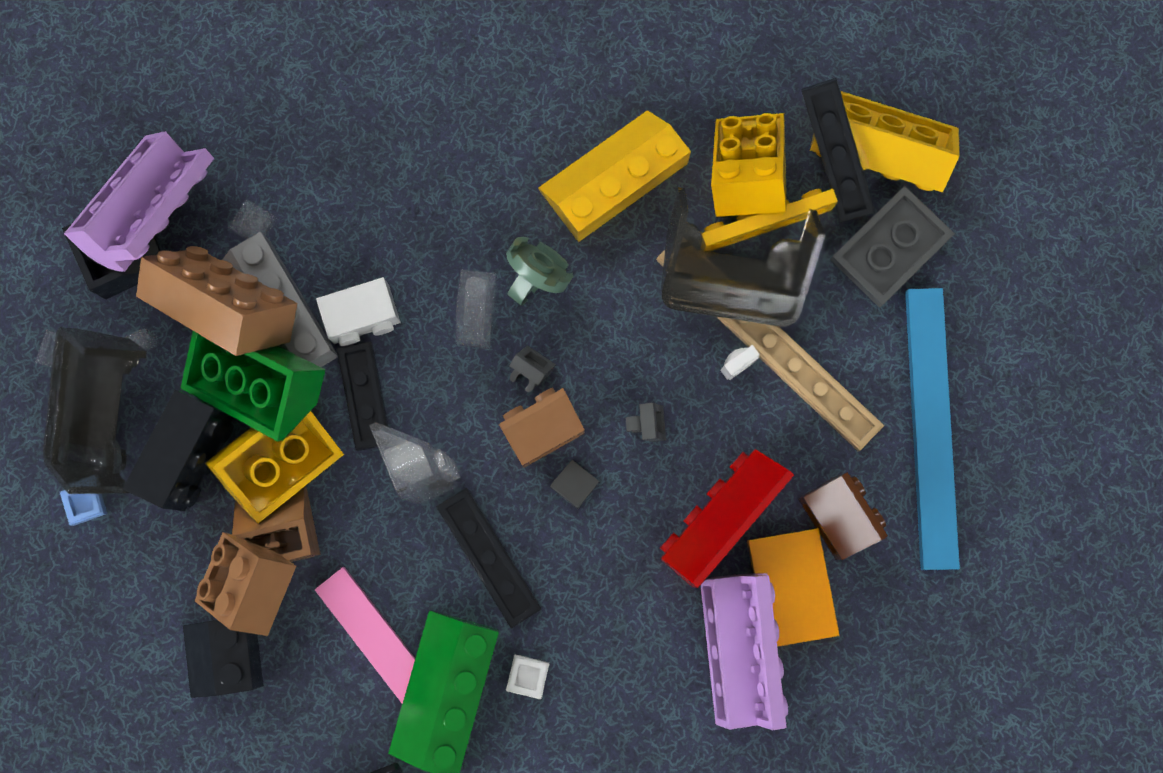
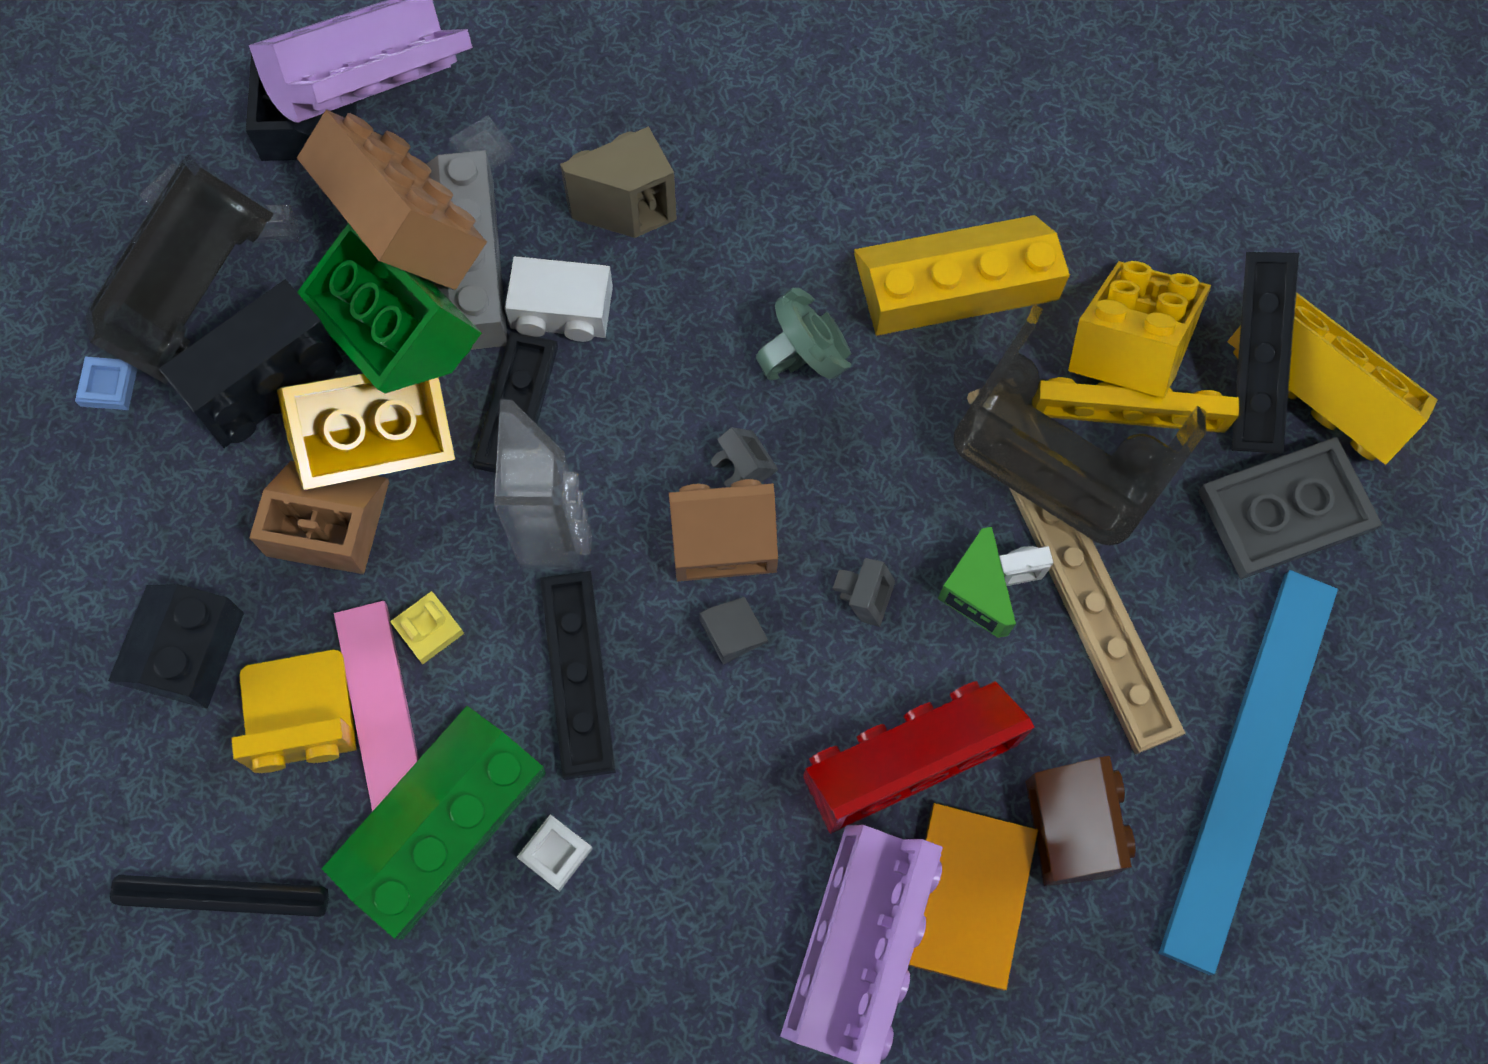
camera: 20 degrees right, 10 degrees down
(244, 585) = (246, 552): medium nougat slope -> none
(322, 664) = (294, 712): none -> yellow bracket
(365, 215) = (622, 185): none -> dark tan slope
(378, 571) = (427, 627): none -> light yellow tile
(476, 308) = (708, 355): clear slope -> none
(718, 388) = (979, 587): none -> bright green slope

